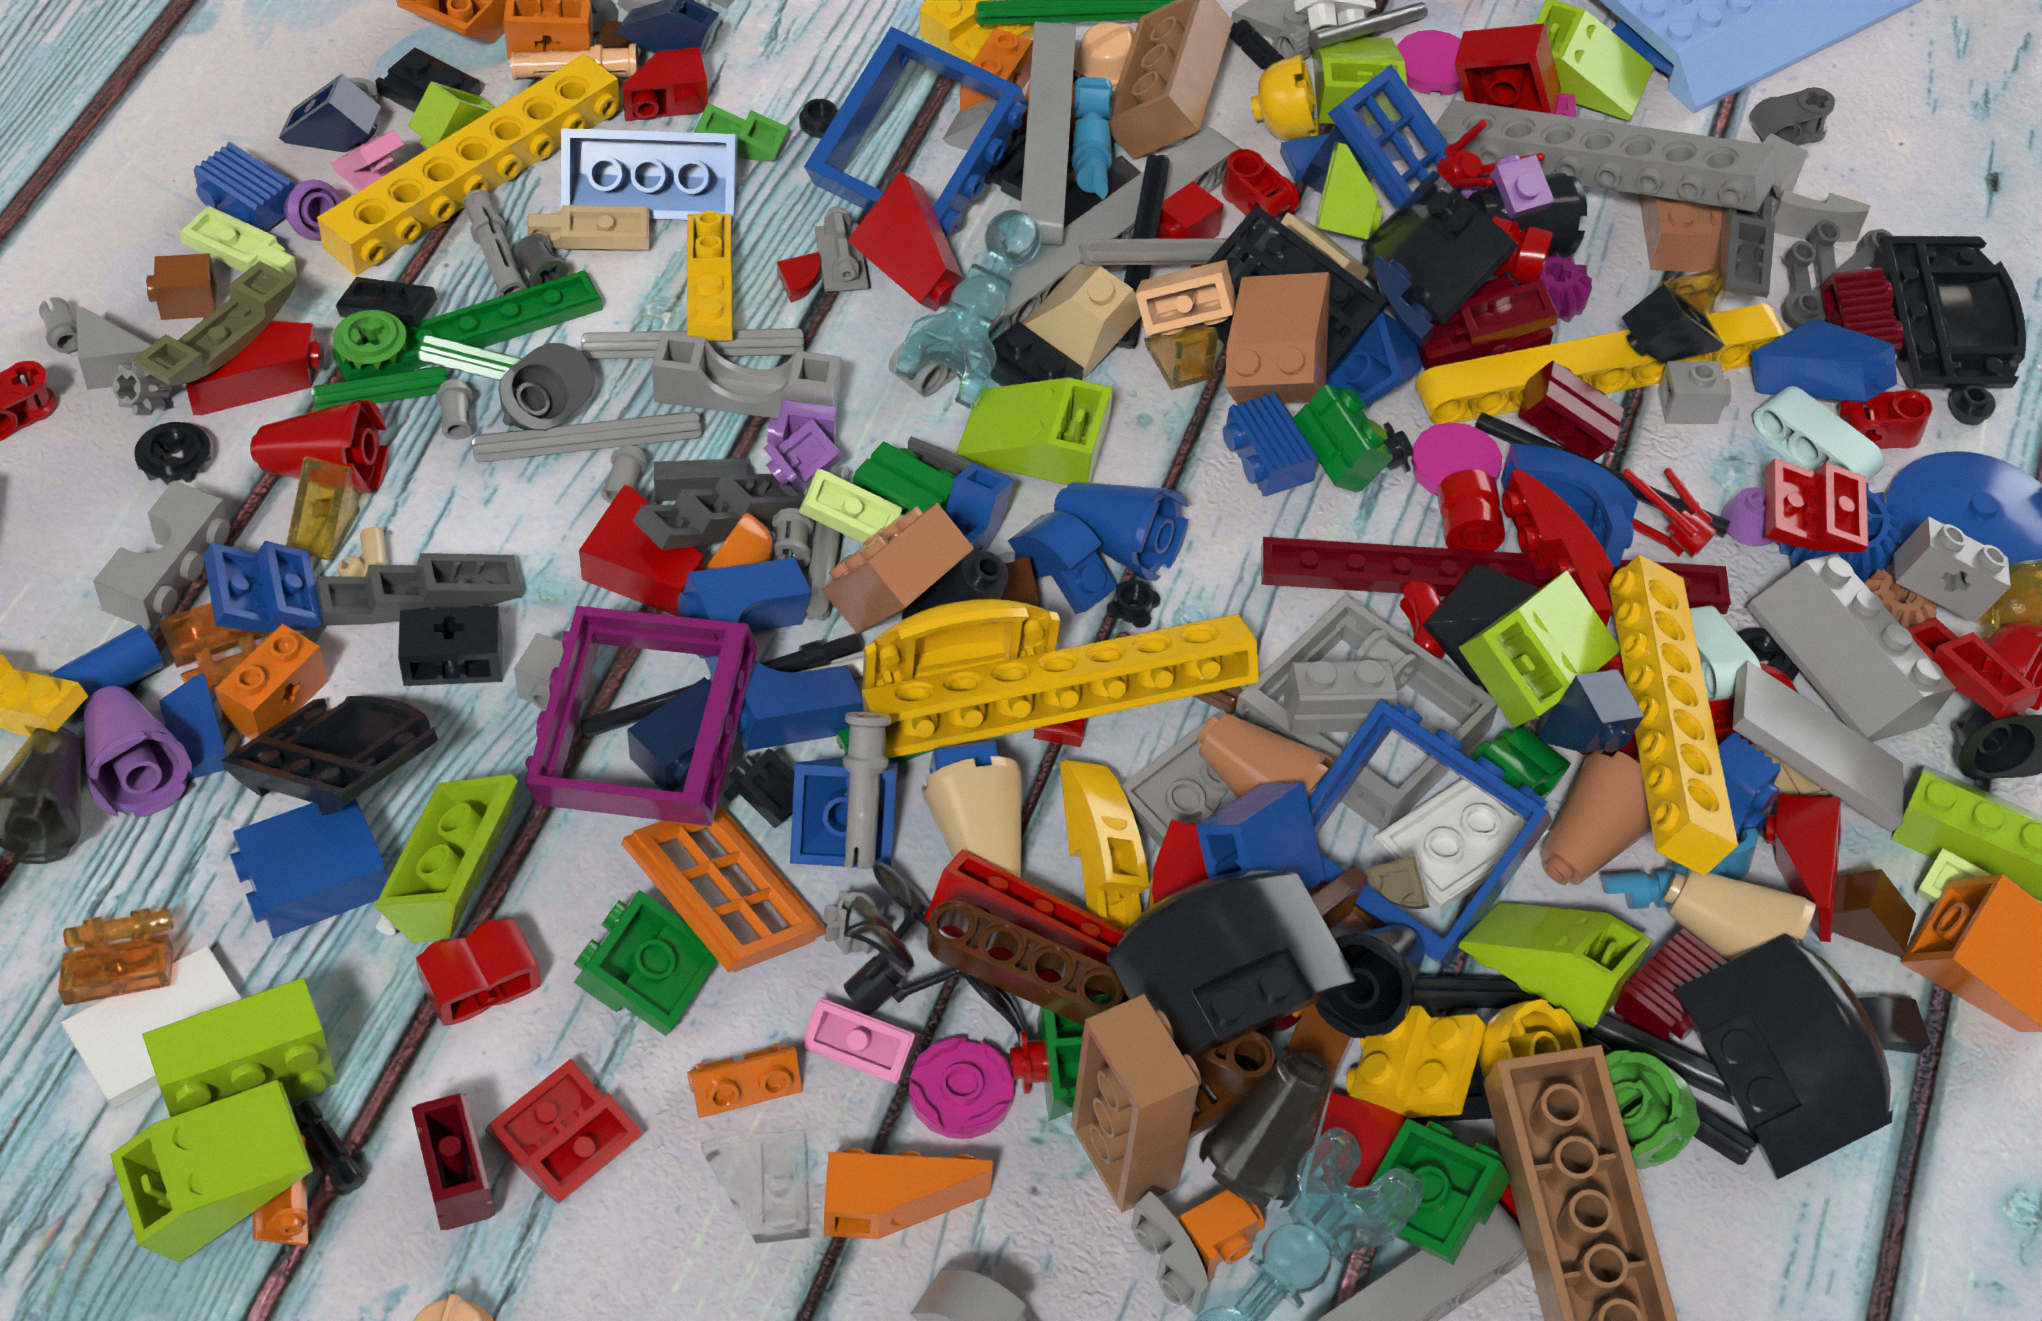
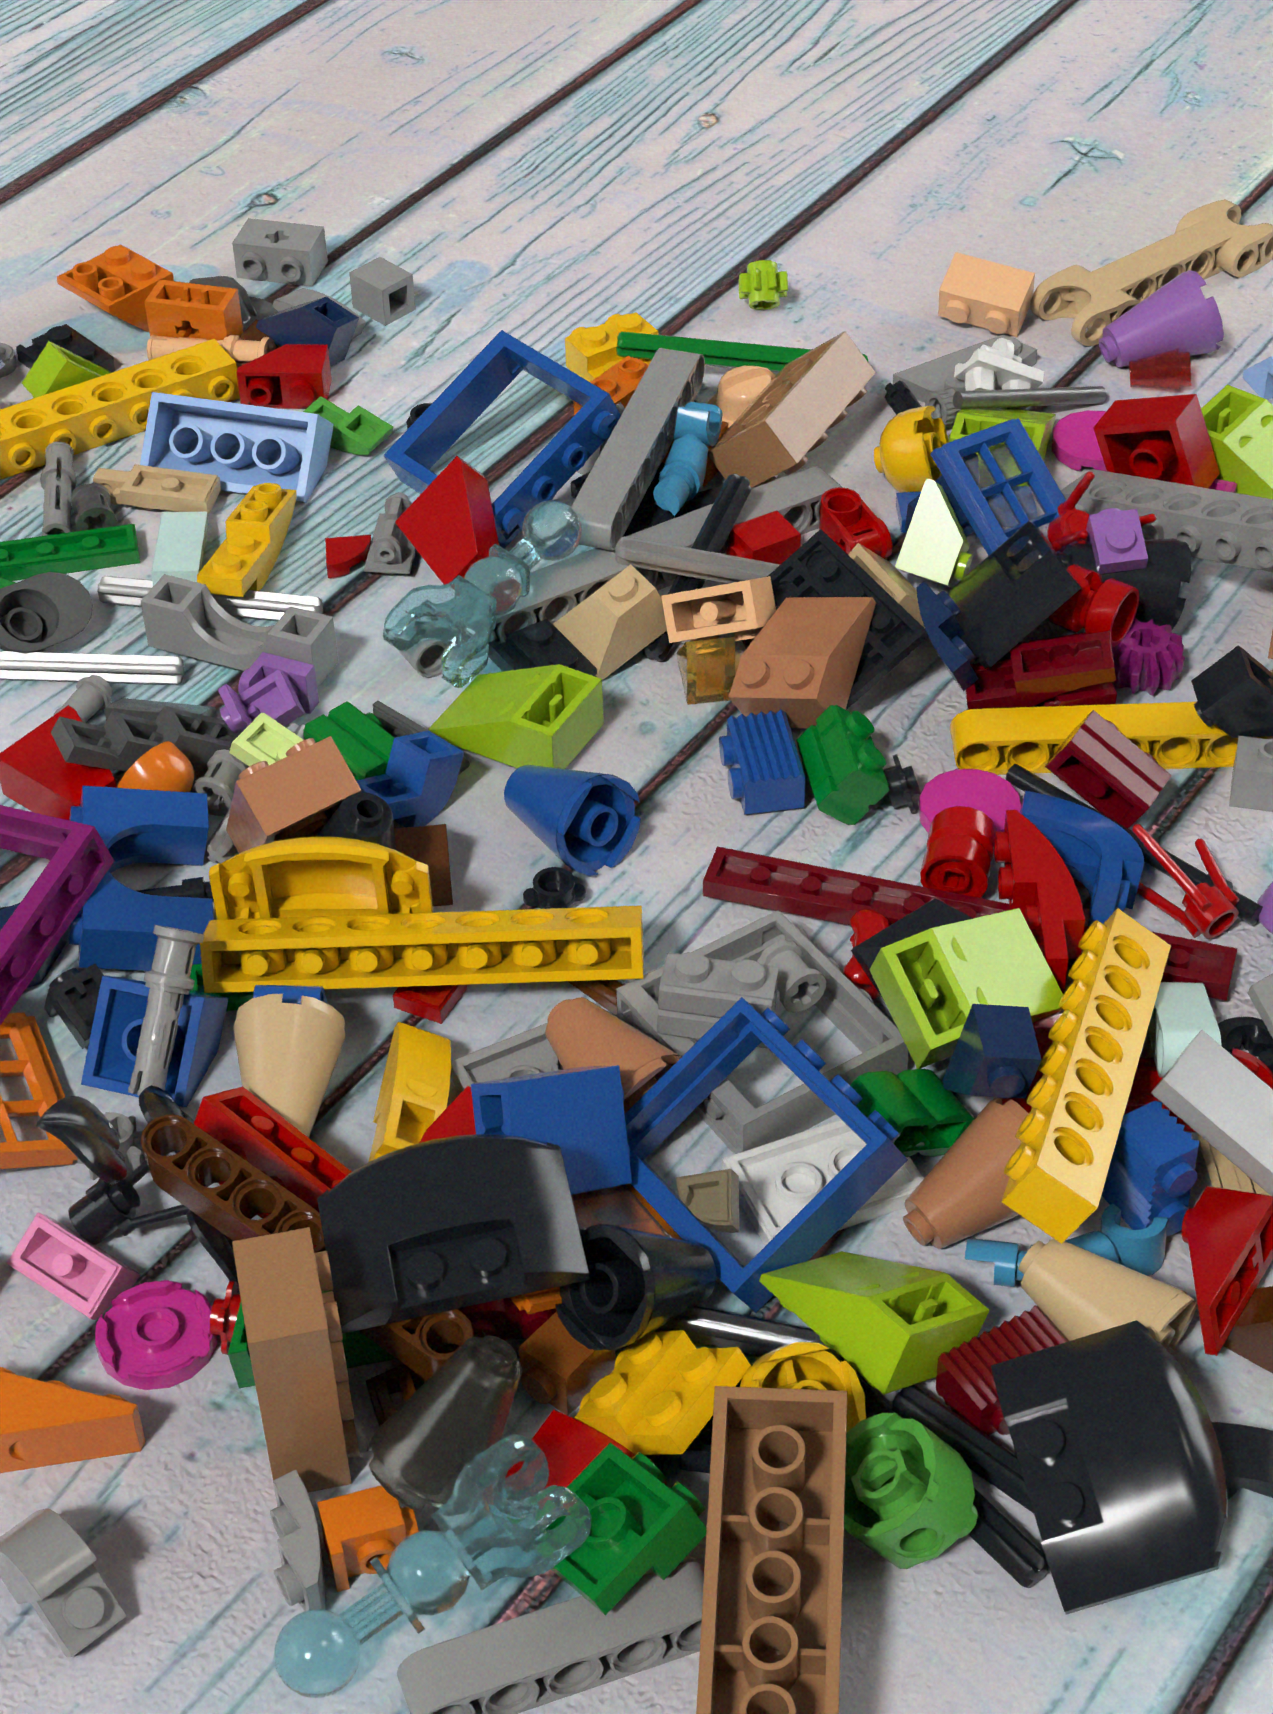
camera: 20 degrees right, 10 degrees down
(645, 293) = (180, 545): none -> light aqua tile
(1066, 551) = (493, 831): blue brick -> none
(1340, 896) = (623, 1202): reddish brown tile -> none
(1377, 361) = (910, 699): blue slope -> none

